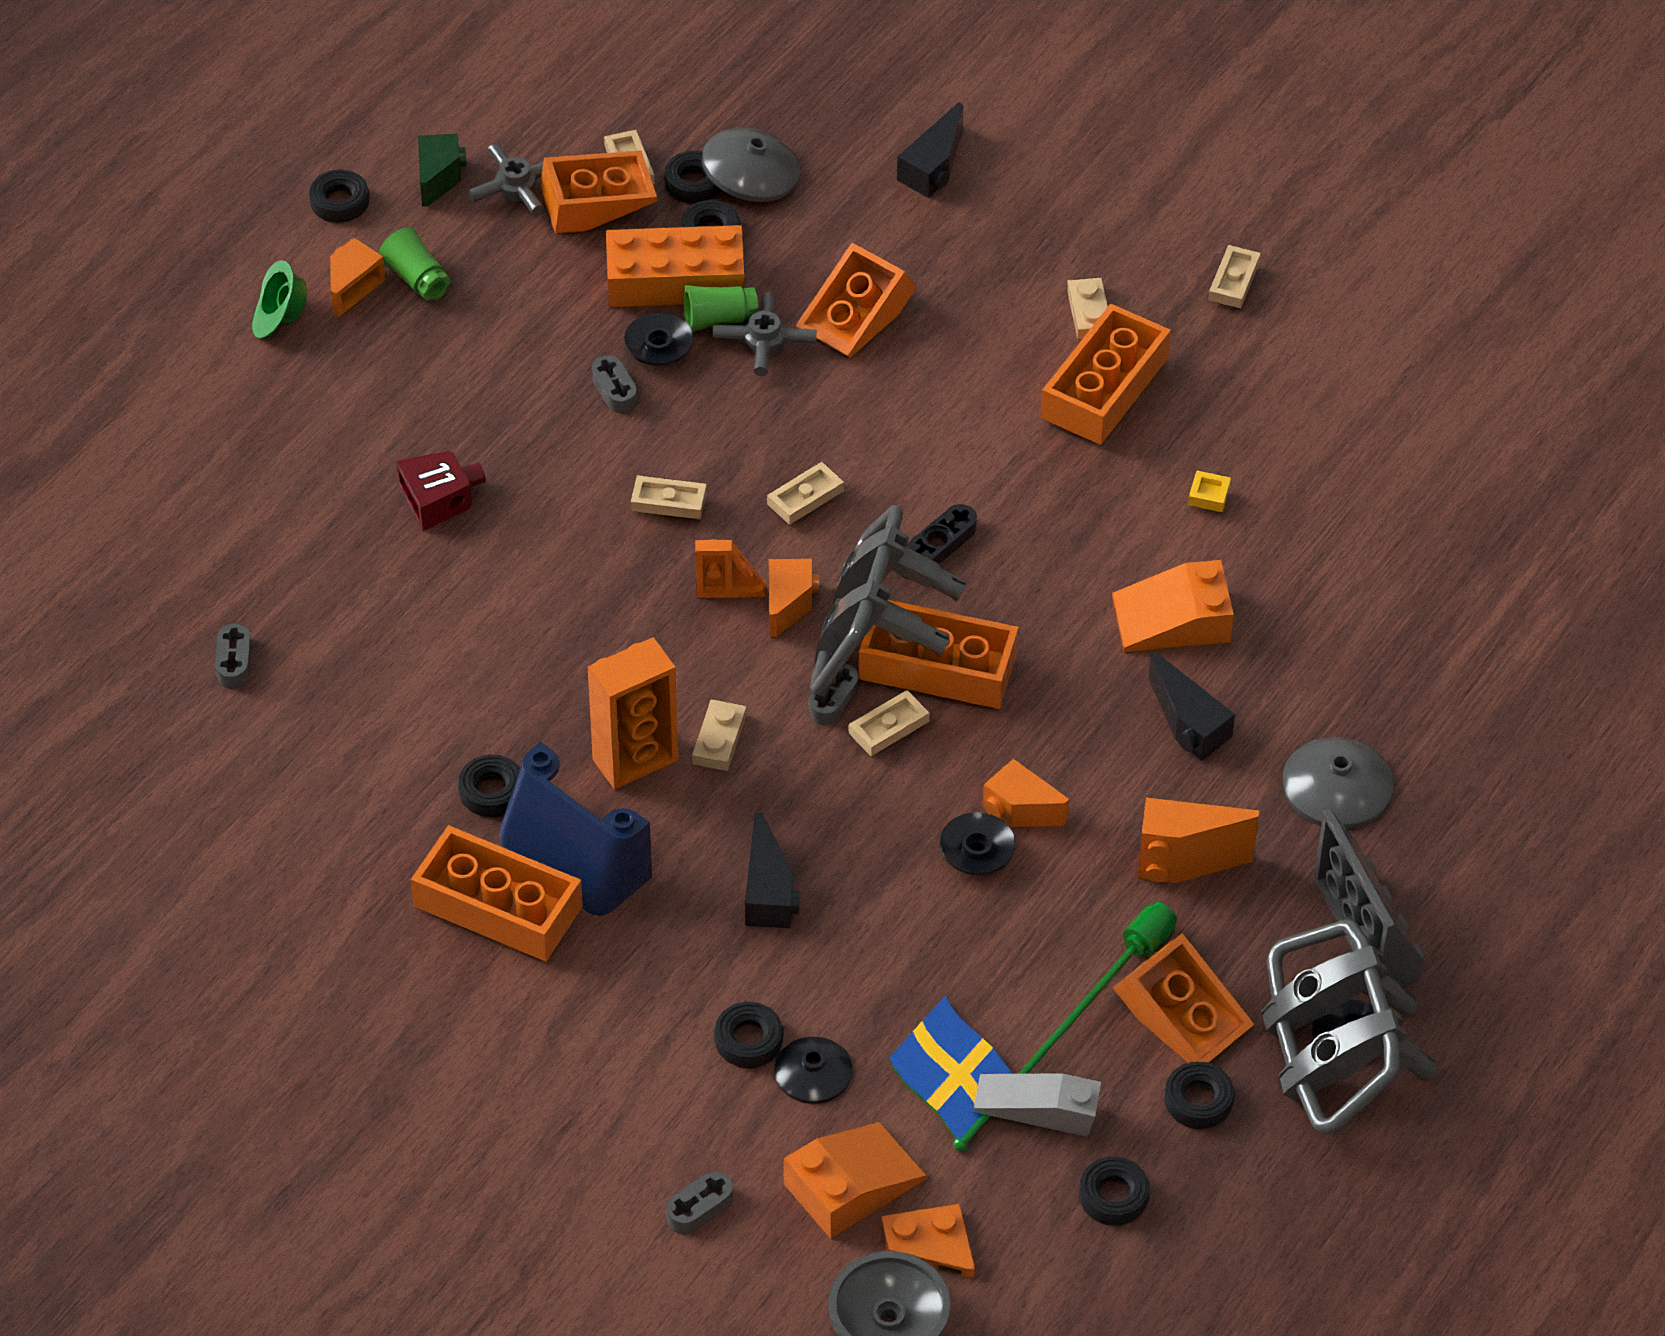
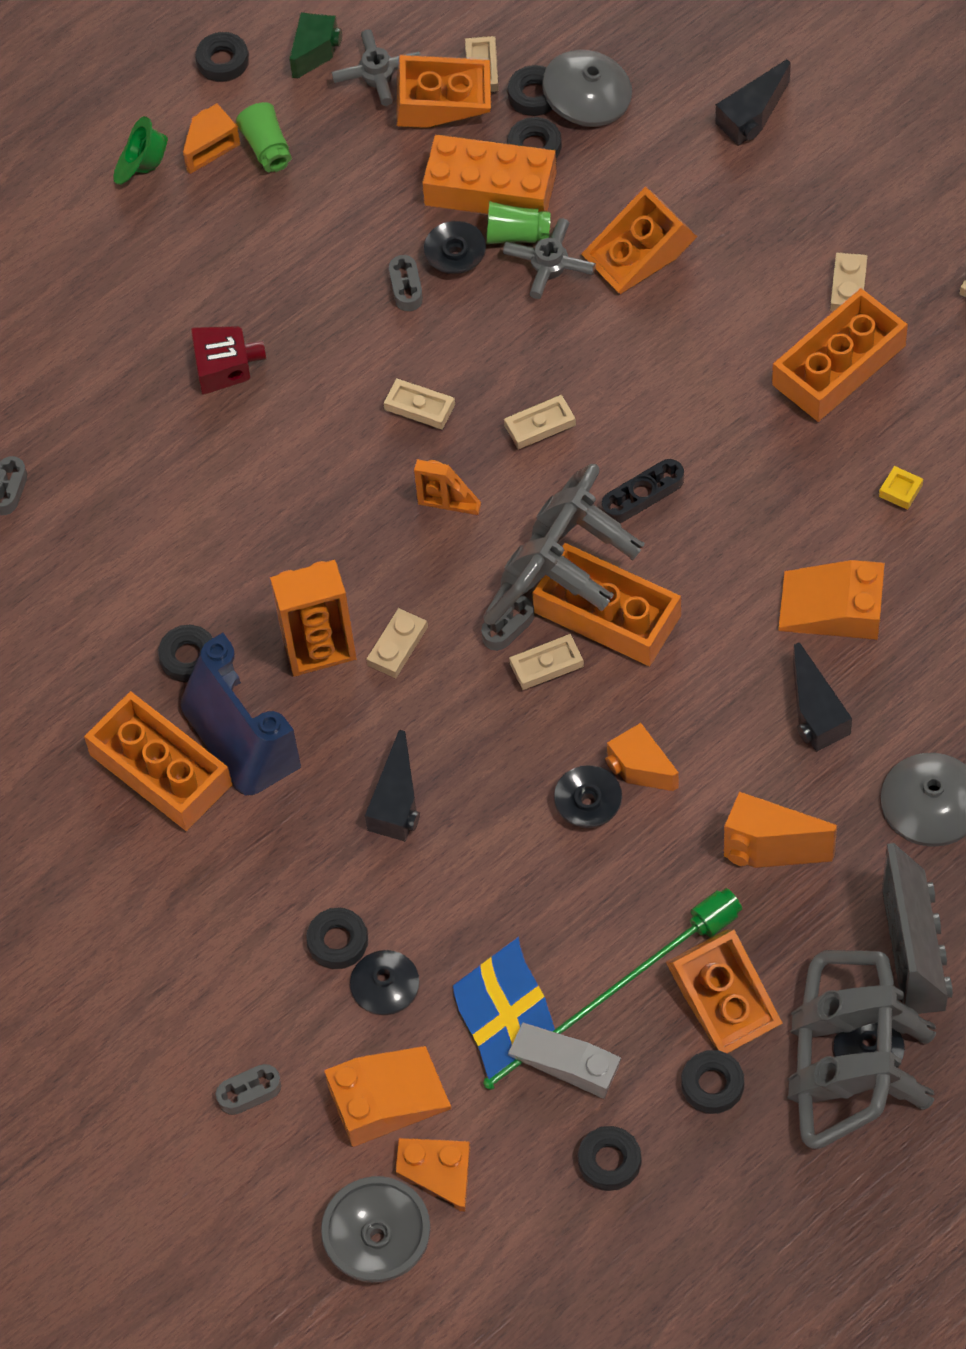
camera: 20 degrees right, 10 degrees up
(790, 592) = (496, 518): orange slope -> none

